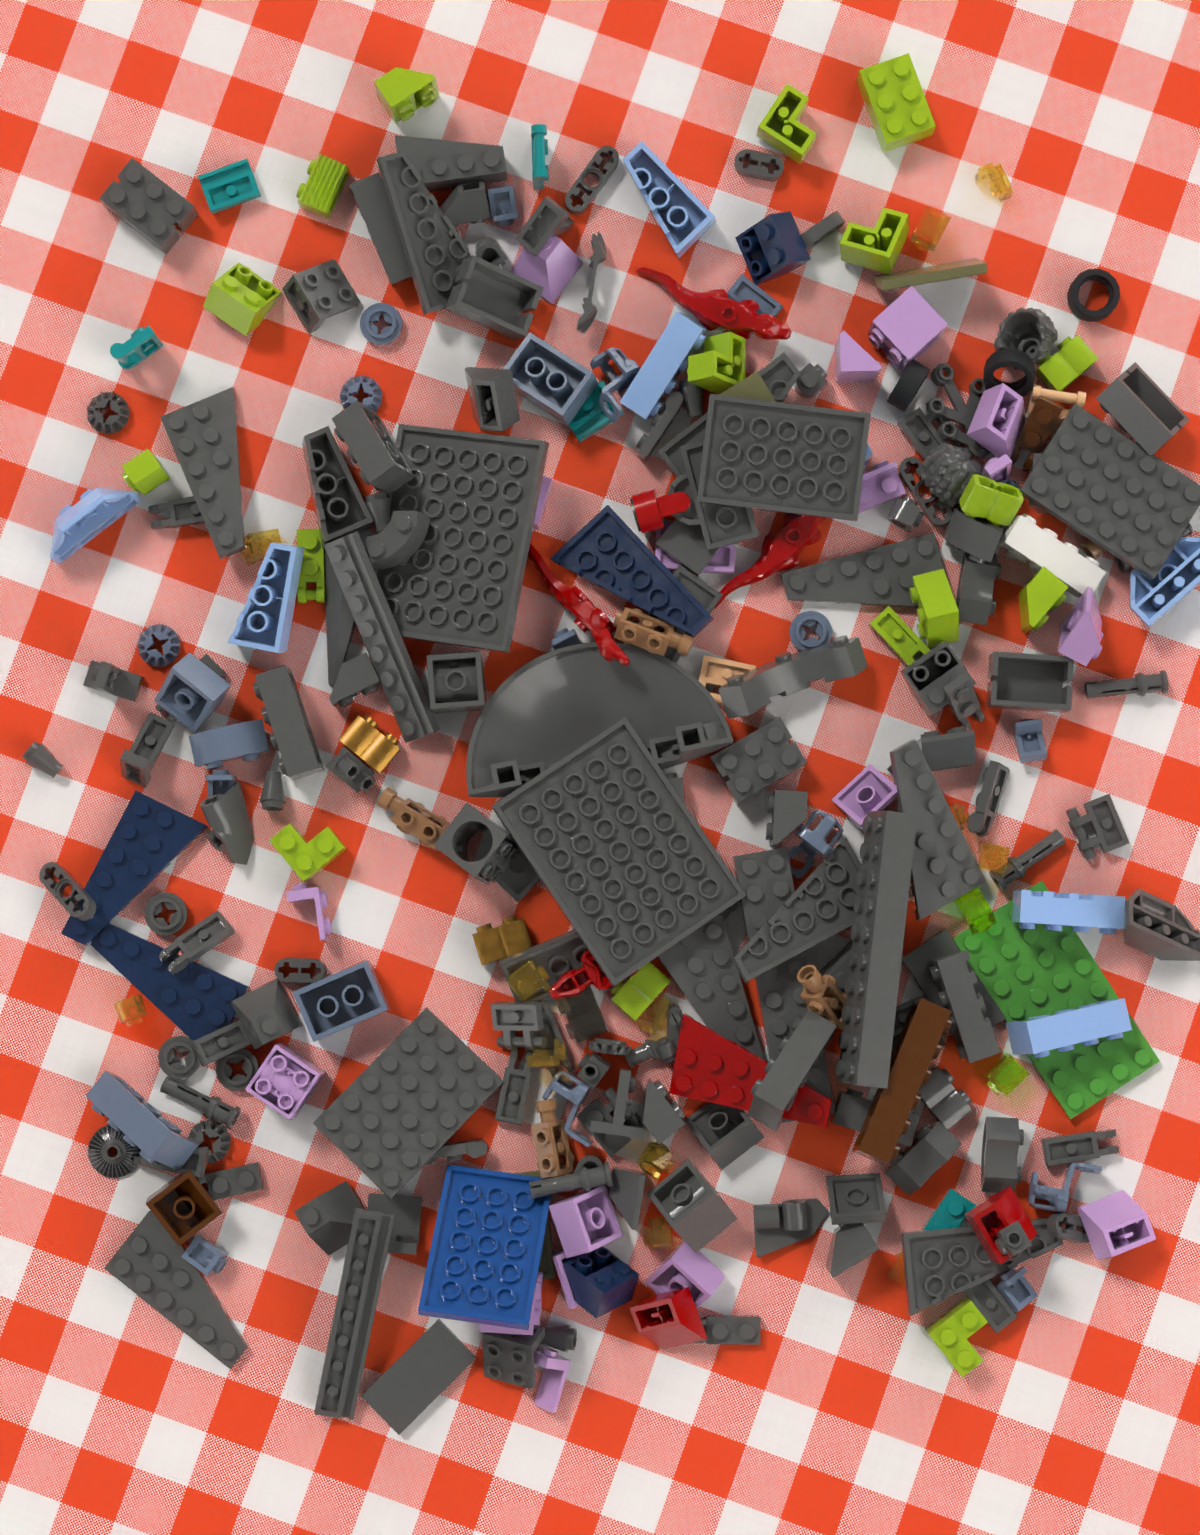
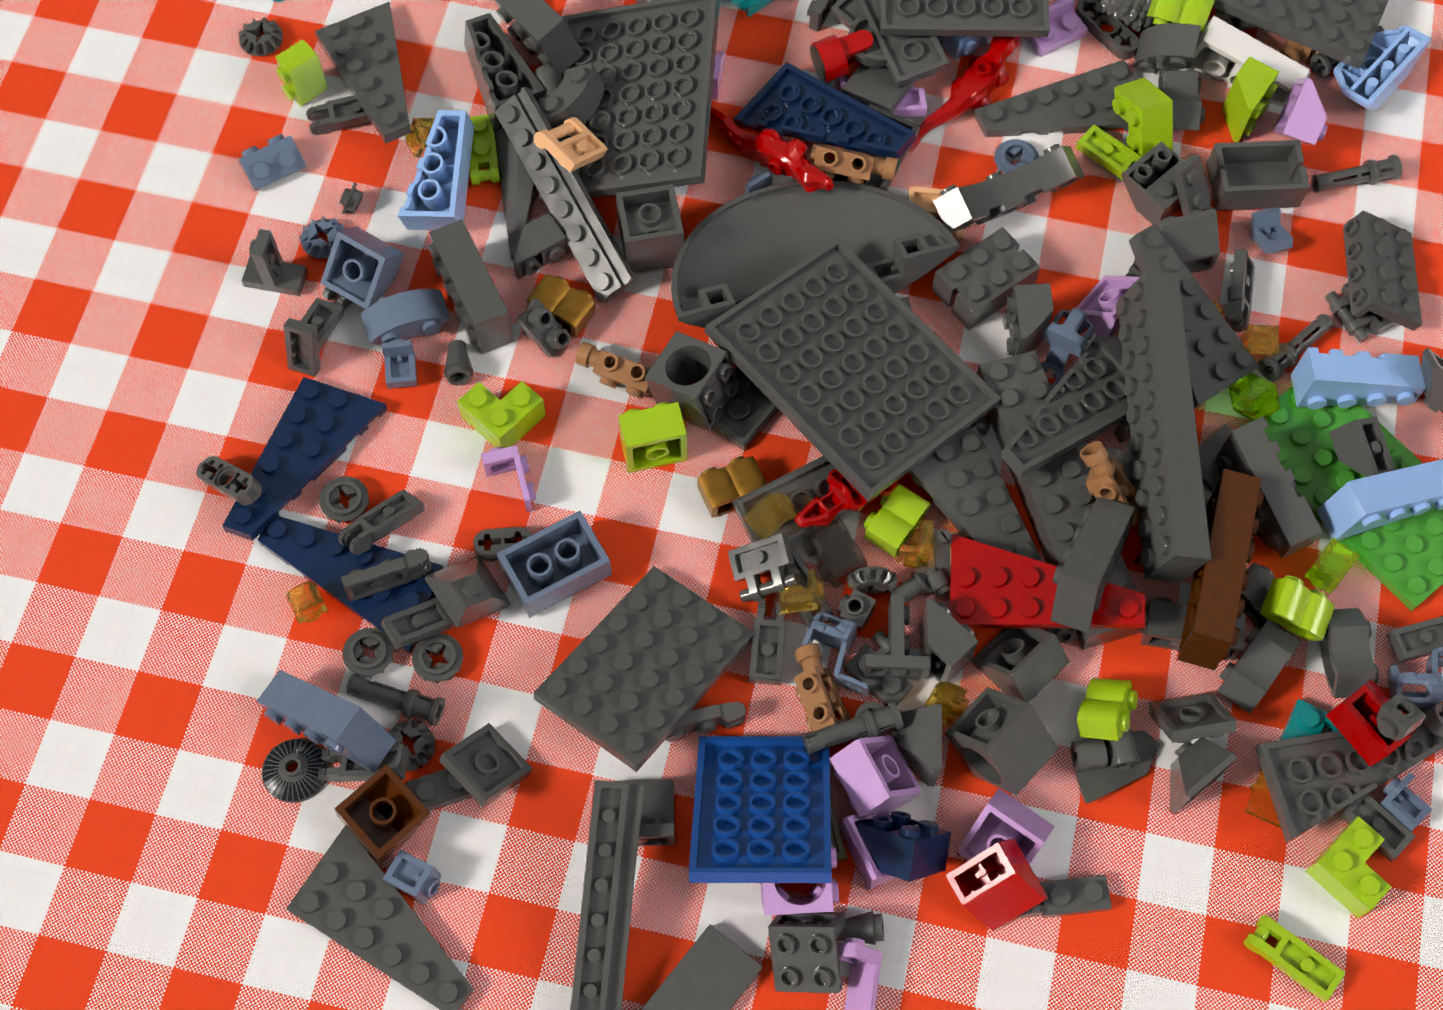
camera: 10 degrees left, 20 degrees down
(41, 758) = (196, 355): dark grey cone -> none
(88, 518) = (245, 124): light blue wedge -> none
(113, 559) = (271, 162): none -> sand blue bracket
(186, 610) = (351, 199): none -> dark grey plate
(200, 996) = (387, 574): none -> dark grey hinge
(230, 824) = (411, 396): dark grey panel -> none
(270, 1170) = (485, 764): none -> dark grey plate
(285, 1080) = (496, 655): lavender brick -> none
(330, 1217) = (562, 812): dark grey slope -> none
(397, 603) = (573, 151): none -> light nougat plate
(436, 892) = (653, 436): none -> lime brick
(658, 1234) = (964, 789): clear yellow plate -> none
(785, 1184) = (1106, 709): none -> lime brick
(898, 1401) = (1295, 958): none -> lime plate
(905, 513) = (1092, 46): dark grey plate -> none
(963, 1119) = (1298, 608): none -> lime brick
(1055, 980) = (1362, 447): none -> dark grey slope
(1121, 796) = (1381, 270): none -> dark grey bracket

